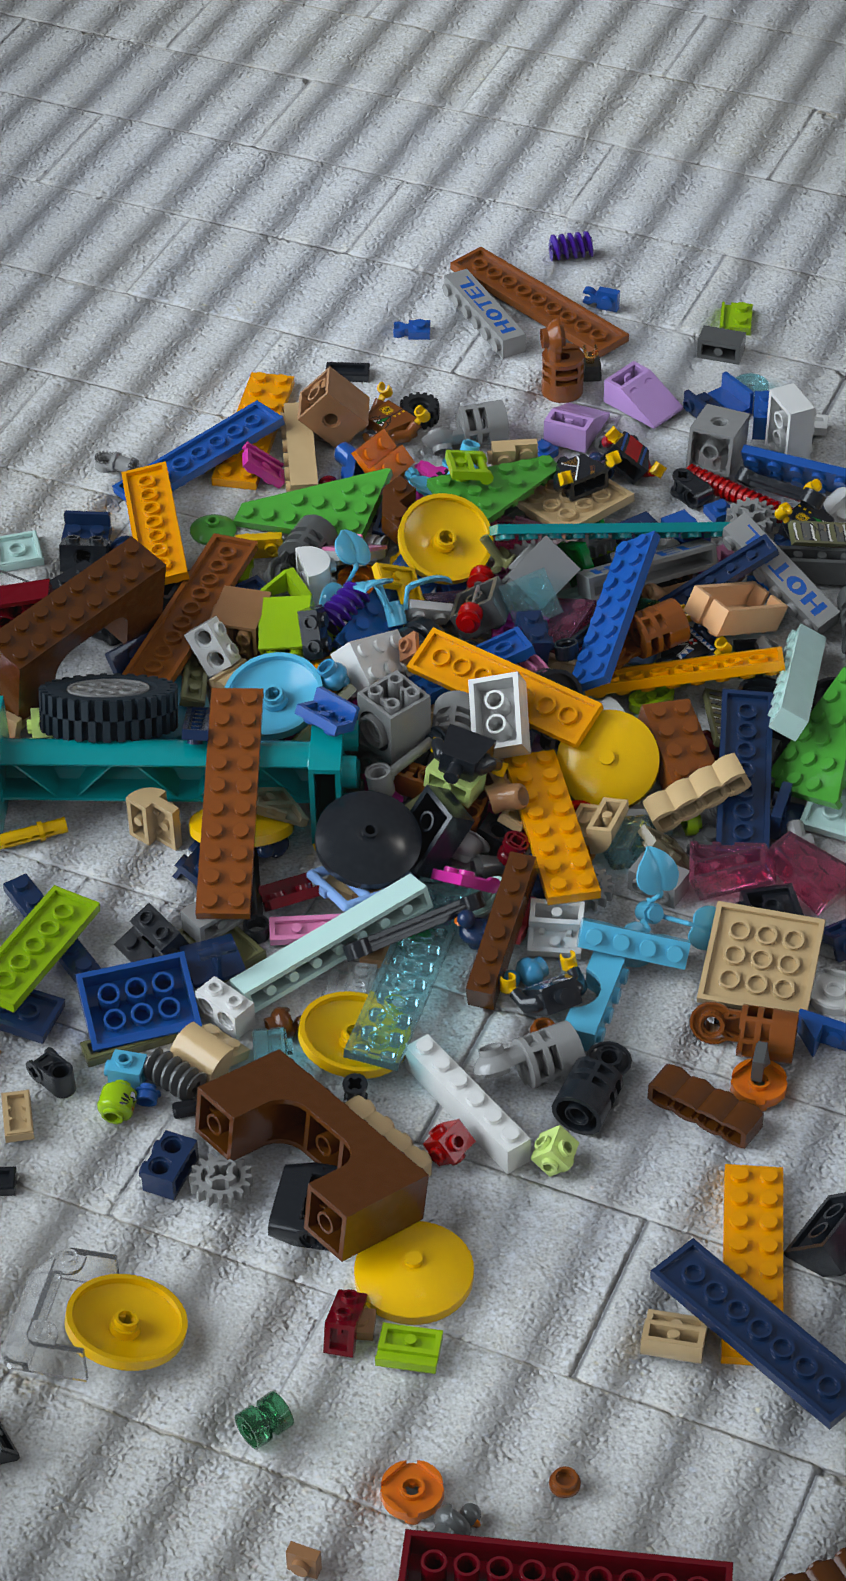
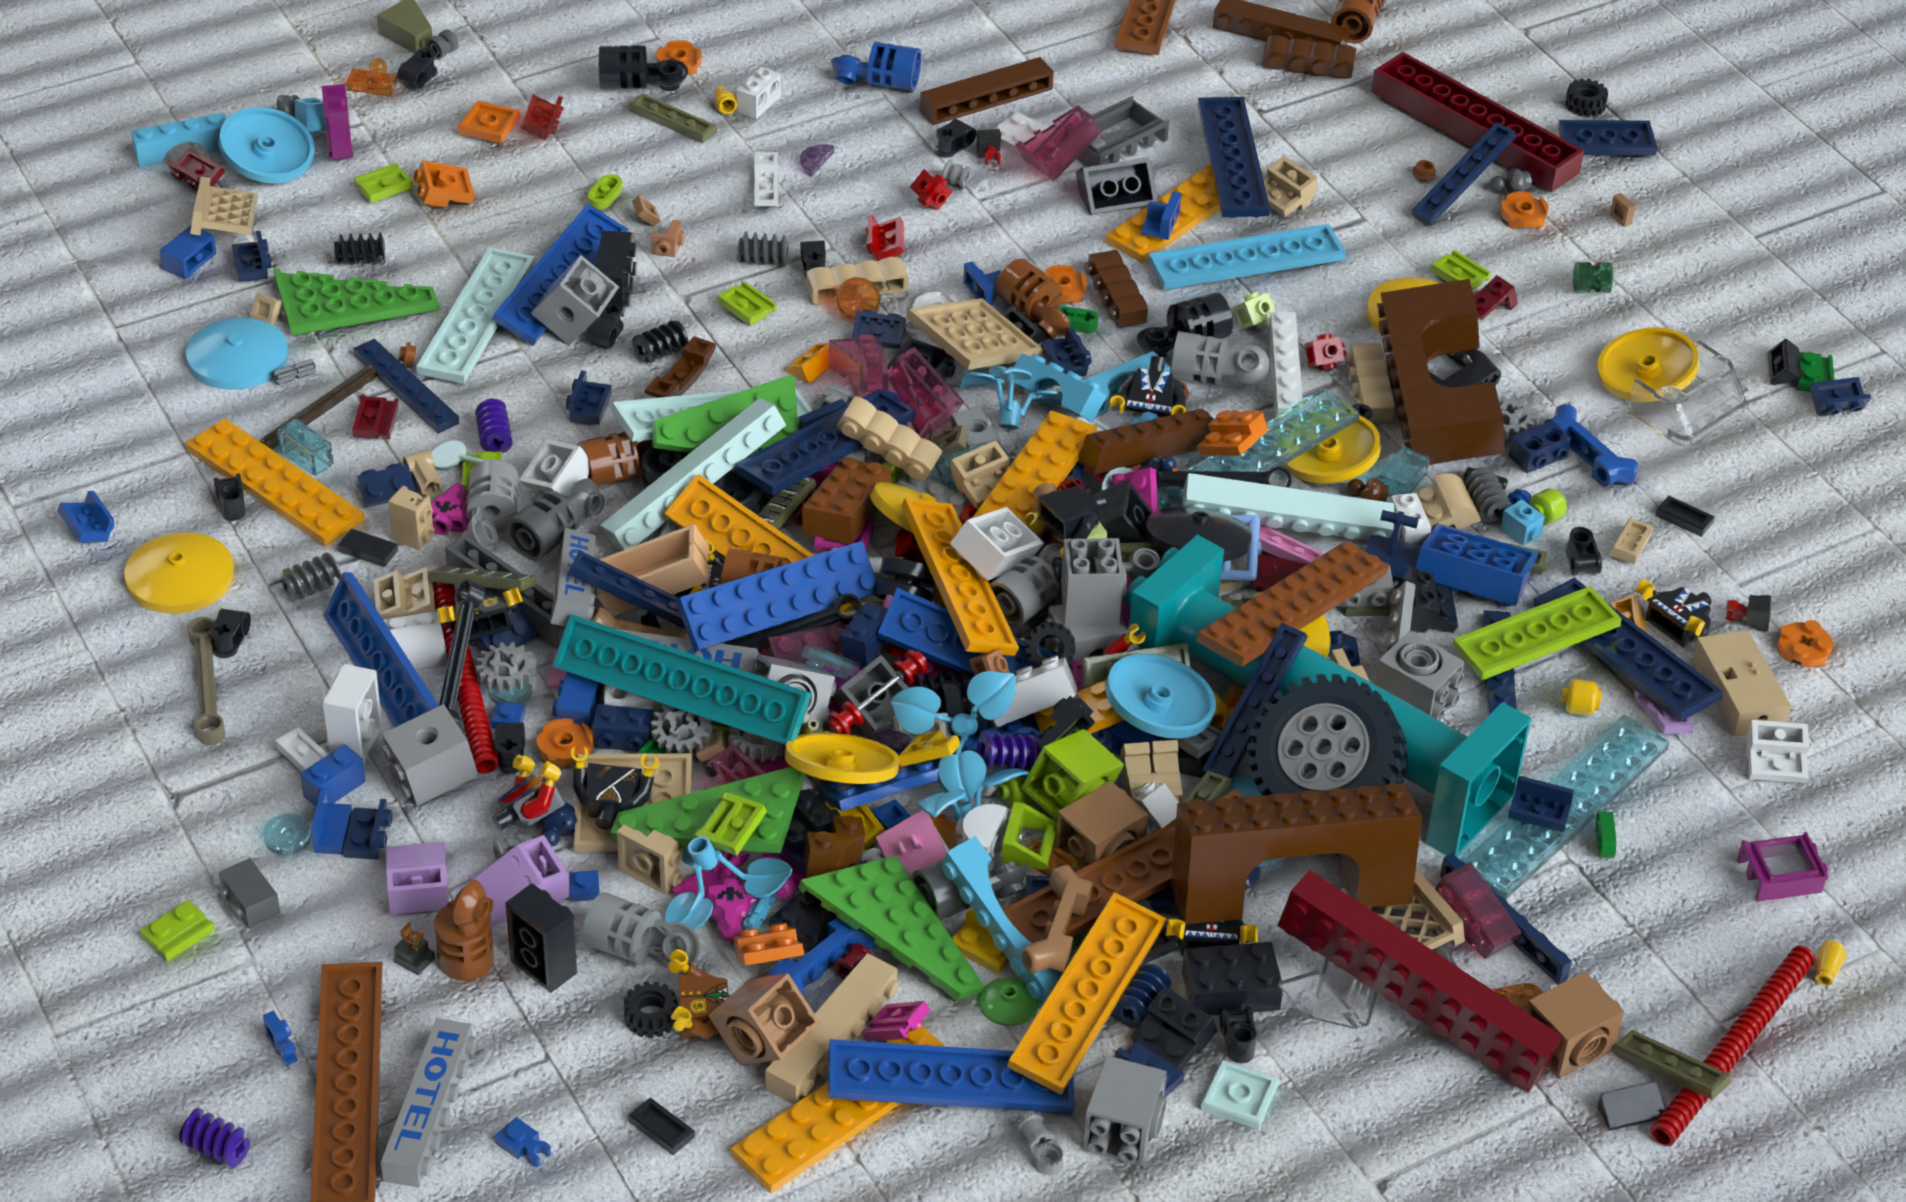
camera: 145 degrees left, 0 degrees up
(40, 568) = (1238, 1033): none -> black piece
(73, 482) = (1125, 1110): none -> light grey brick
(89, 1180) = (1606, 465): none -> blue plate
(102, 856) = (1421, 675): none -> light grey brick
(159, 899) = (1400, 615): none -> light grey plate
(211, 555) = (1056, 948): none -> medium nougat plate
(287, 522) = (968, 869): none -> medium azure arch
(329, 712) = (1171, 568): blue bracket -> none
(333, 675) = (1092, 673): dark azure animal -> none
(437, 974) = (1233, 433): none -> orange plate
(504, 1470) = (1463, 173): none -> dark blue plate
(514, 379) = (541, 937): none -> black brick
(628, 1230) = (1246, 256): none -> medium azure plate
(654, 506) = (555, 731): none -> orange plate
(669, 1001) = (1068, 353): none -> dark blue bracket
(709, 1056) = (1081, 319): none -> green beam
(744, 1201) = (1162, 217): none -> blue panel
(760, 1061) = (1059, 272): dark grey tile -> none

